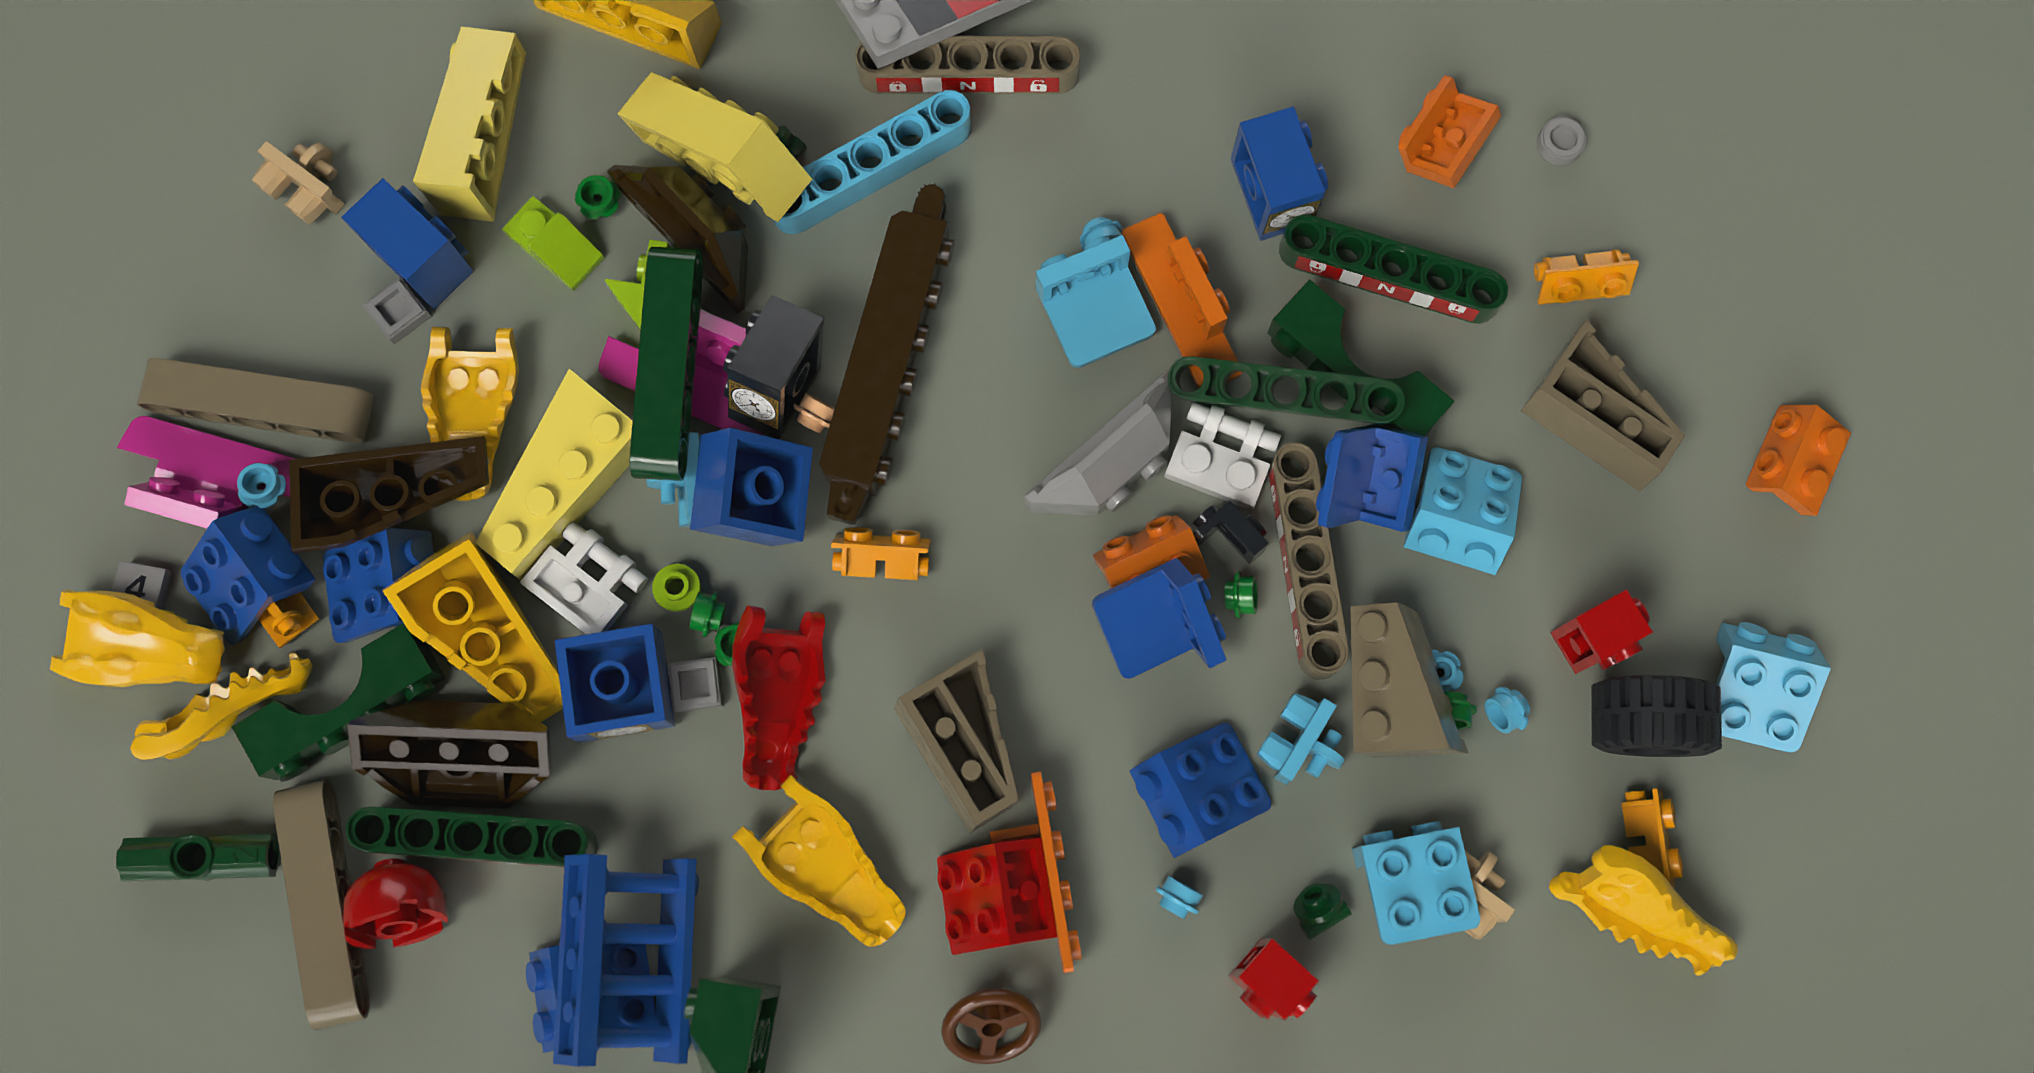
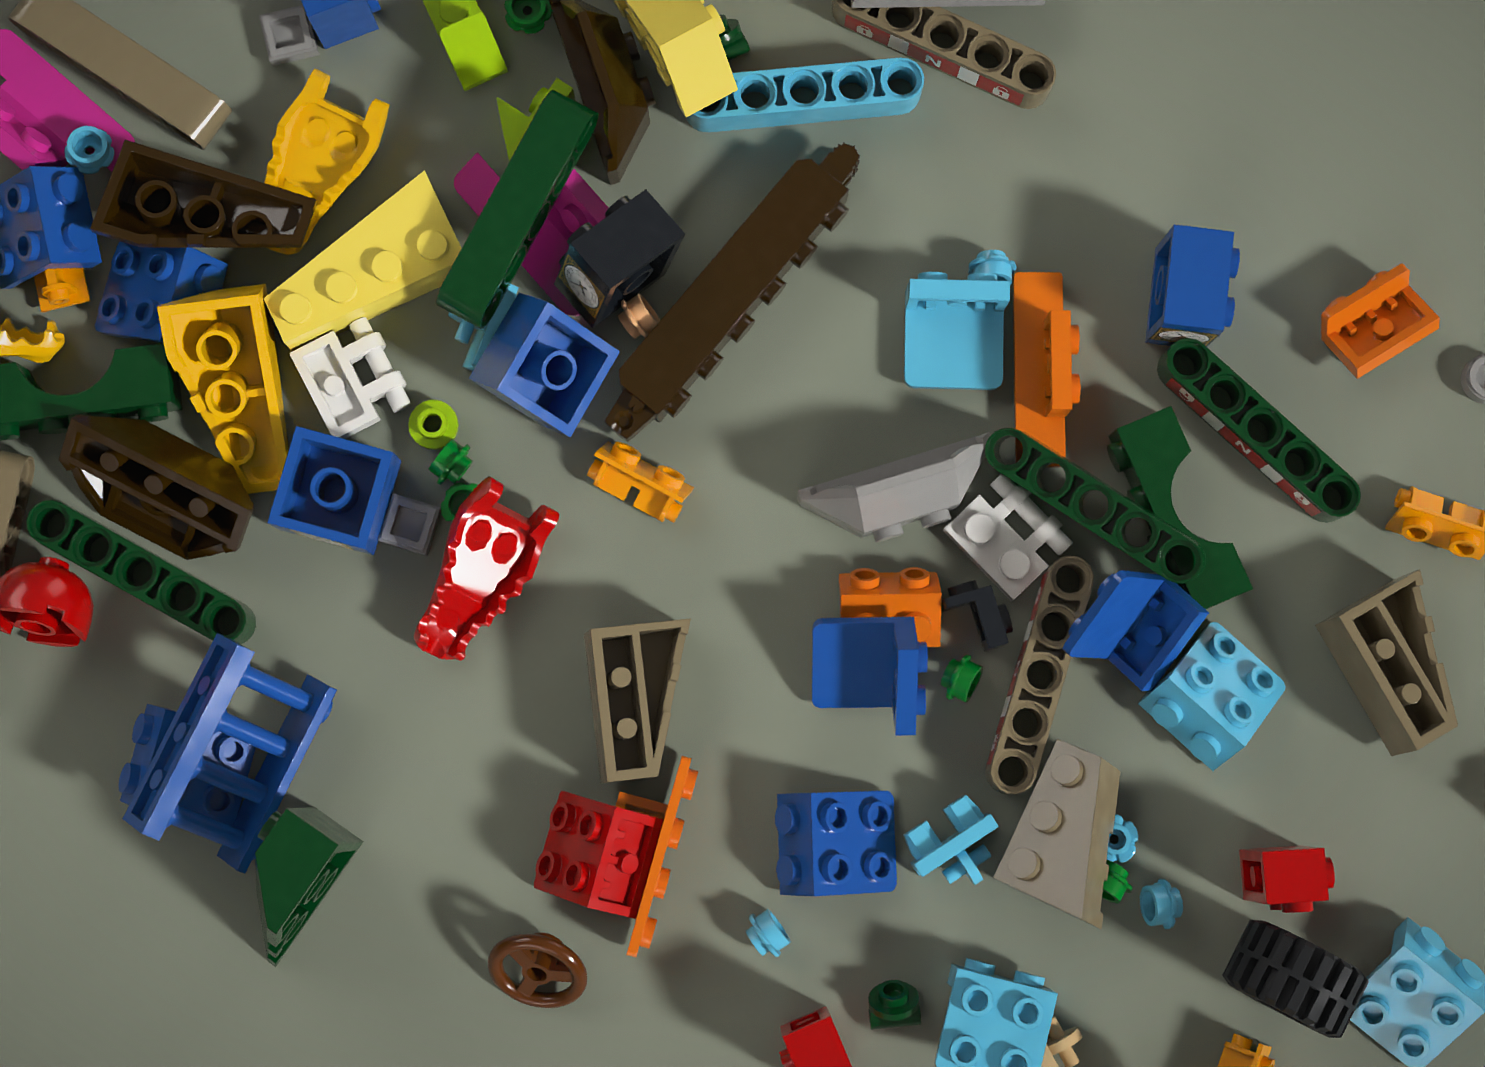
camera: 20 degrees right, 5 degrees up
(820, 863) = (450, 748): yellow animal -> none

